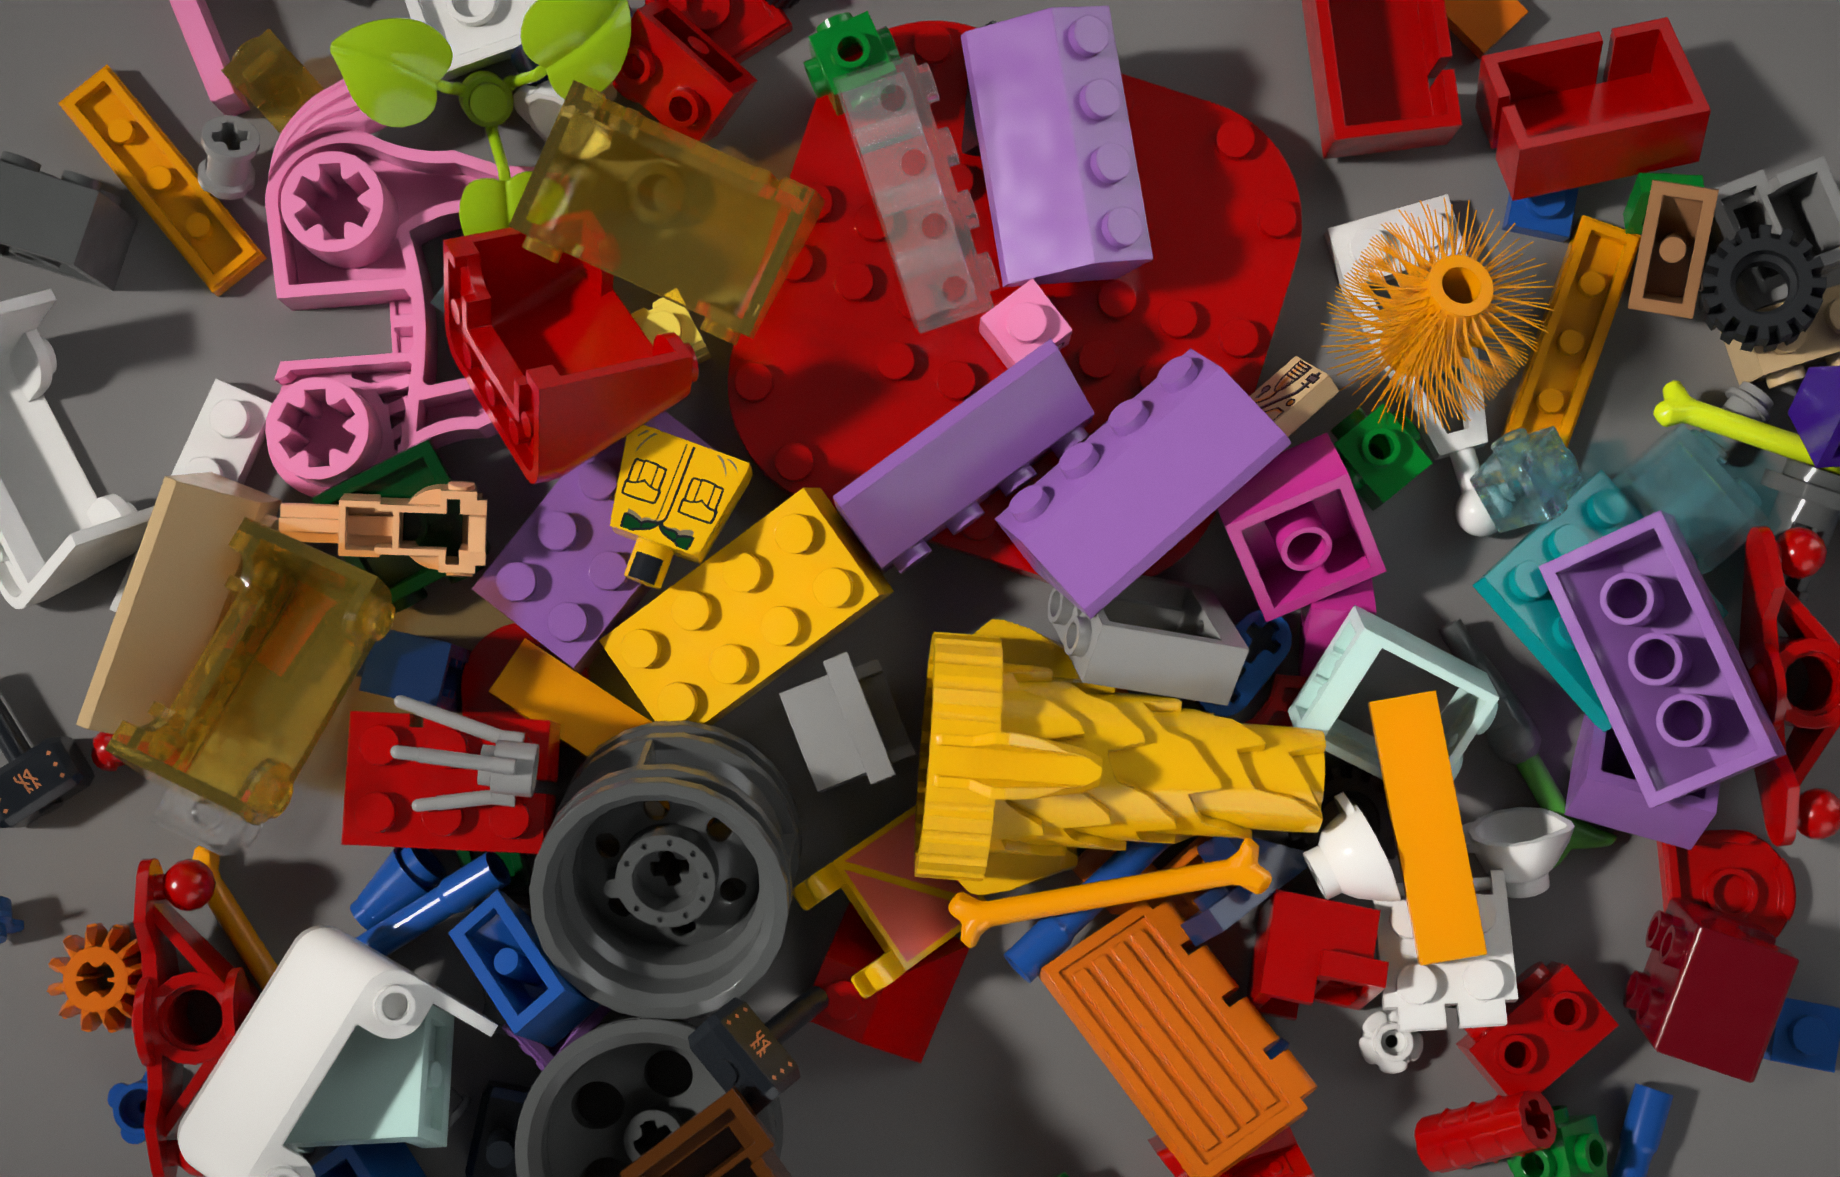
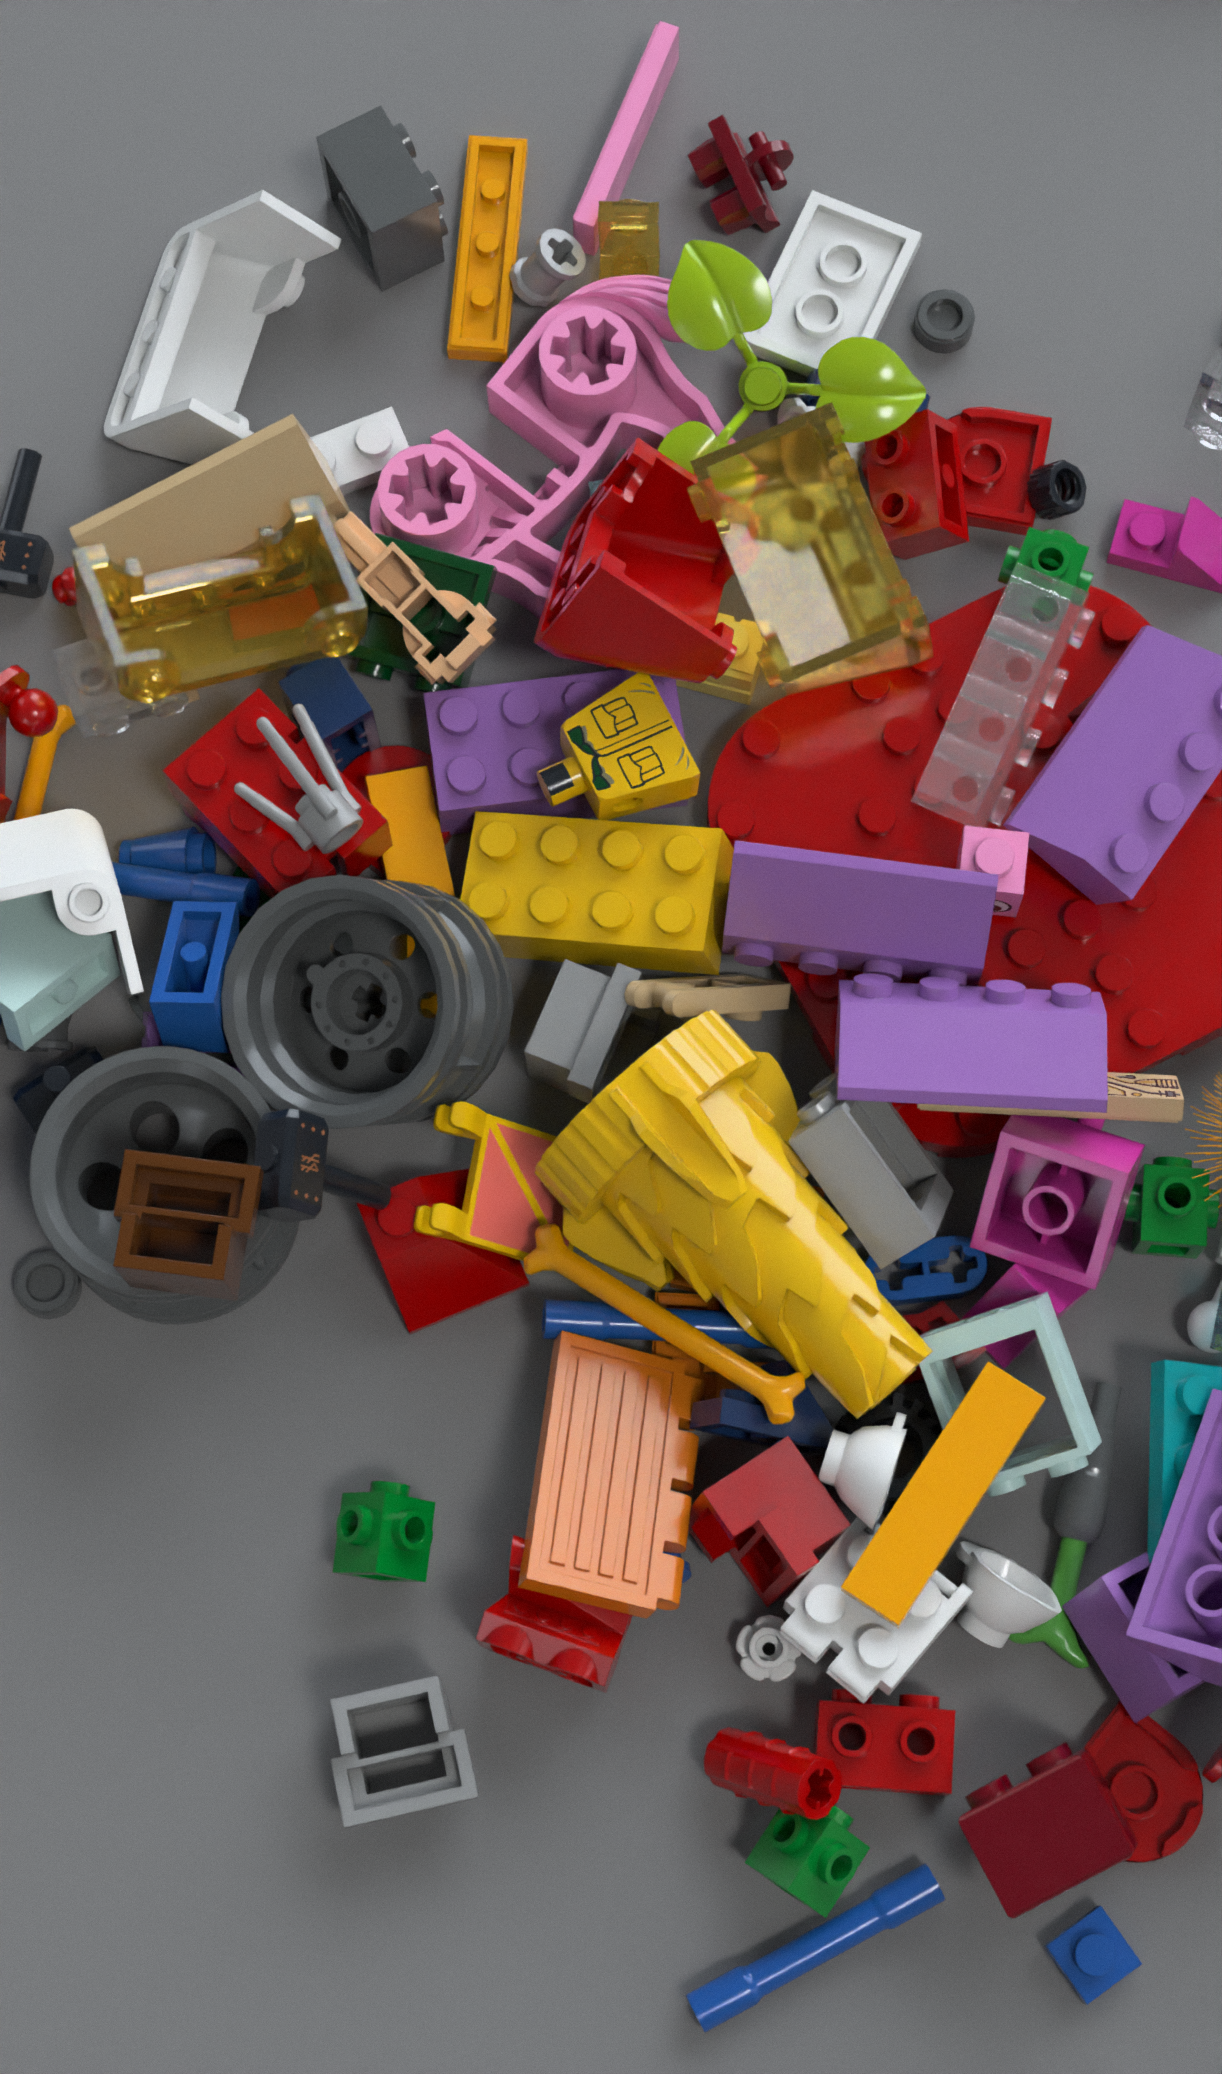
camera: 45 degrees right, 10 degrees down
(907, 616) = (733, 995): none -> tan hinge

